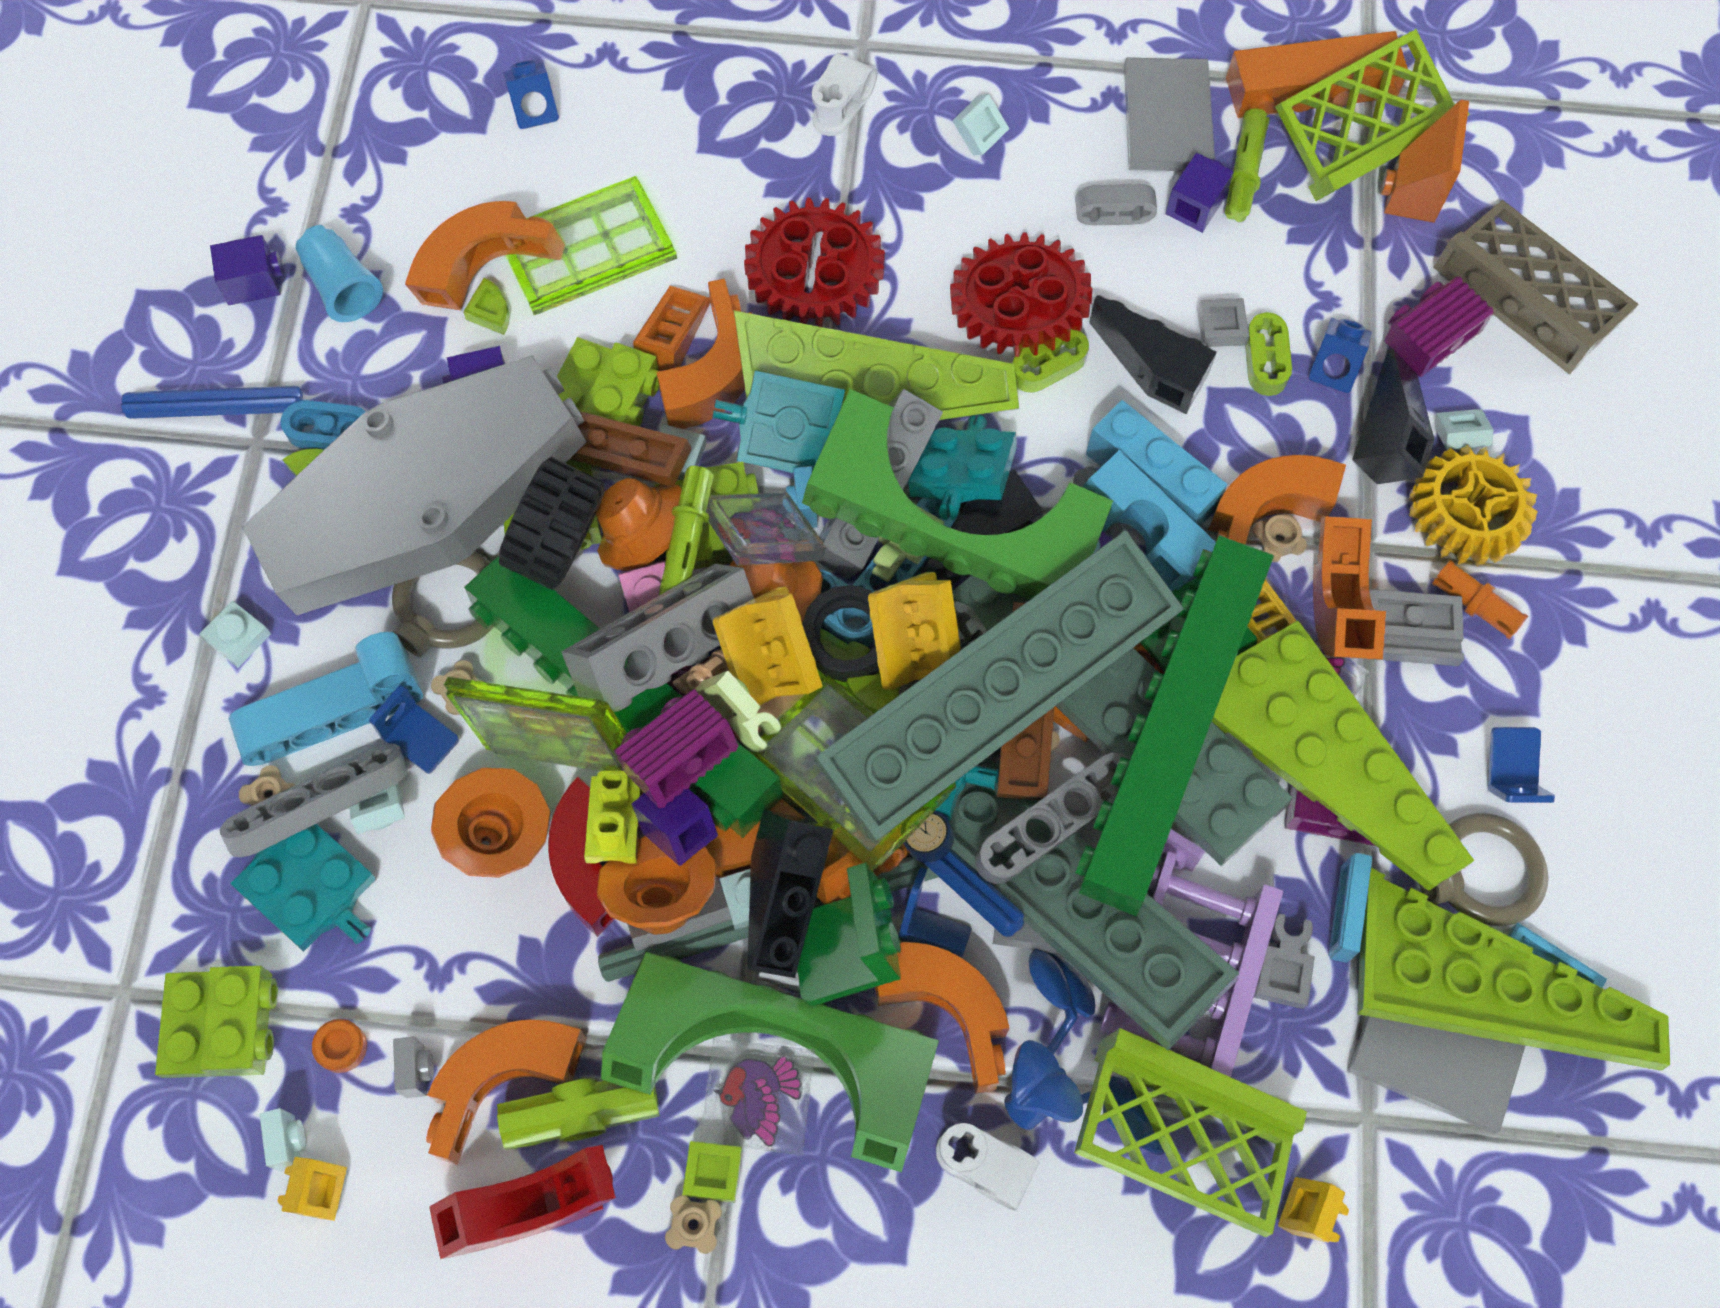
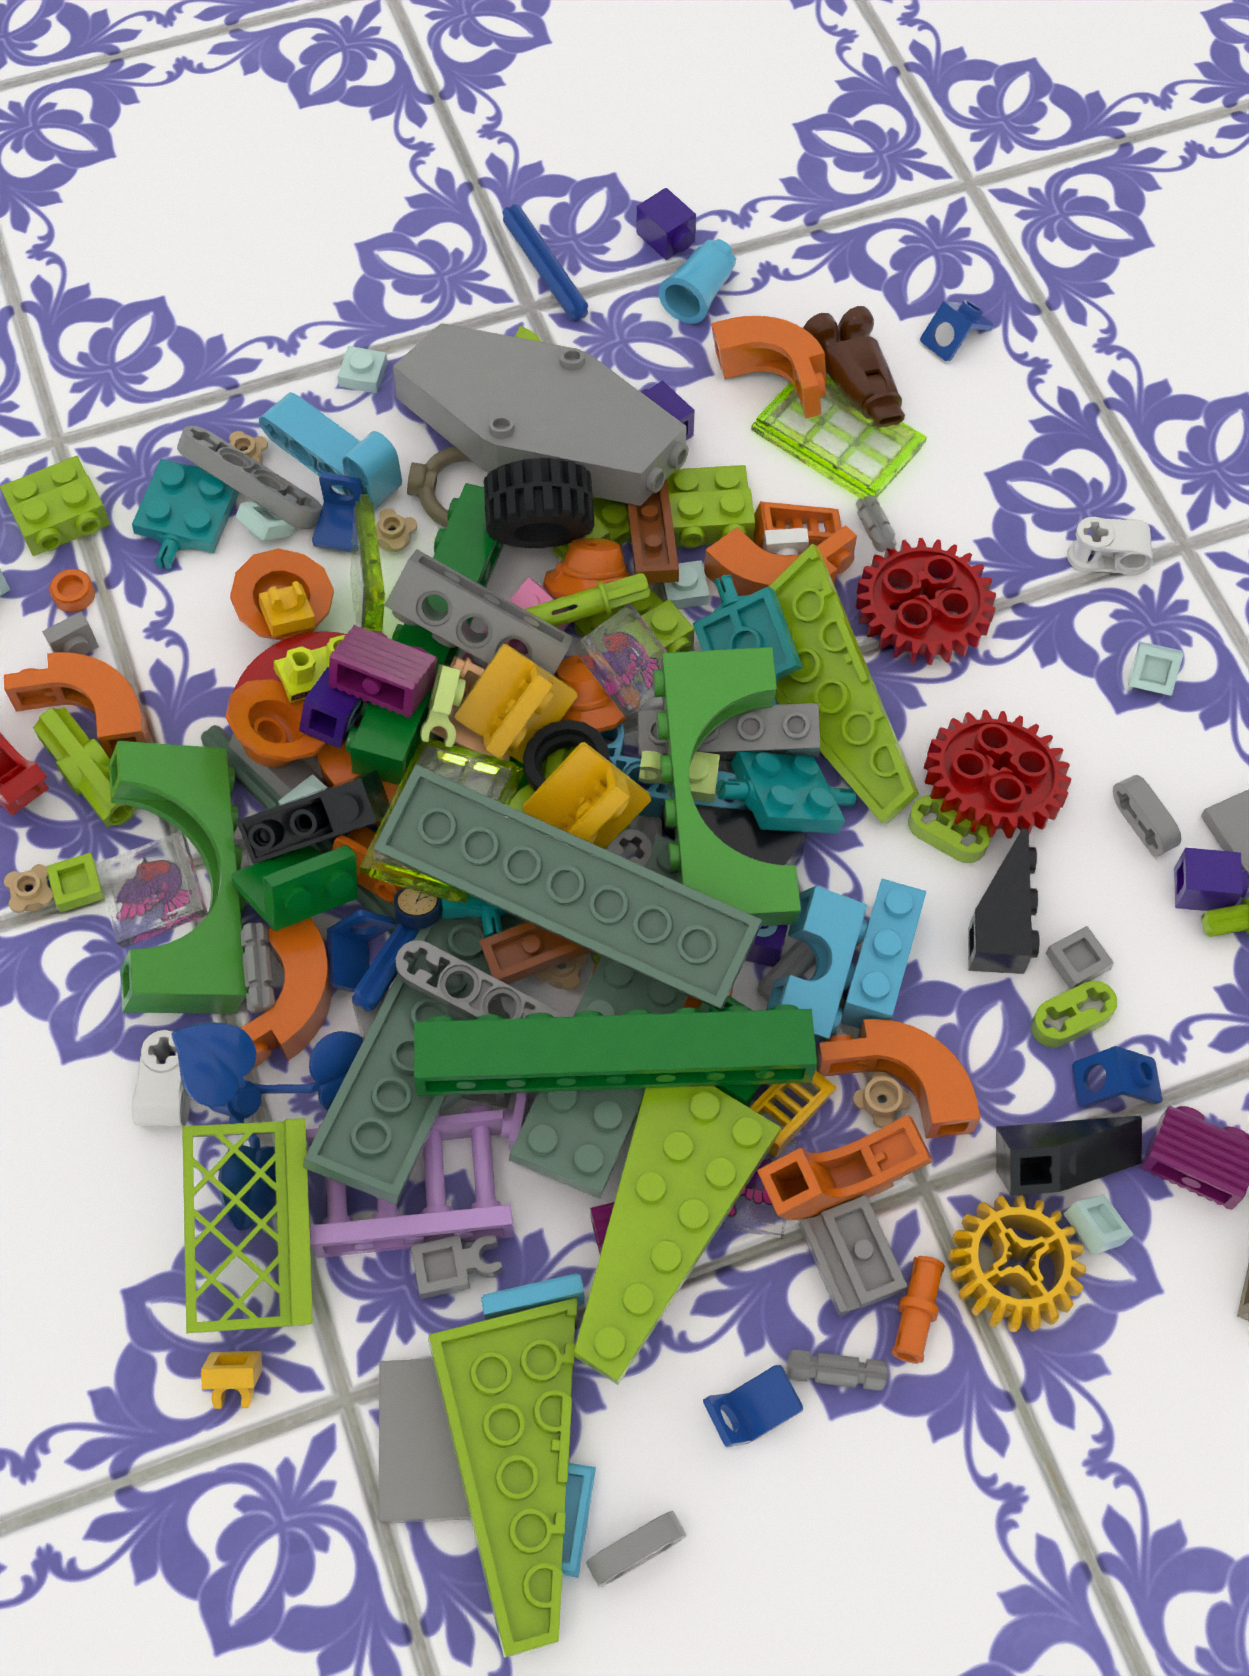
camera: 65 degrees right, 5 degrees down
(328, 420) = (567, 321): dark azure plate -> none
(488, 308) = (738, 396): lime tile -> none
(519, 822) = (286, 609): none -> yellow tile
(535, 186) = (858, 364): none -> reddish brown piece
(694, 342) = (786, 541): none -> white plate
(712, 259) = (876, 523): none -> light grey axle
(916, 1017) = (257, 967): none -> light grey axle
(1453, 888) = (599, 1387): dark tan piece -> none
(1504, 689) = (837, 1370): none -> light grey axle
(1603, 919) = (636, 1548): none -> light grey beam

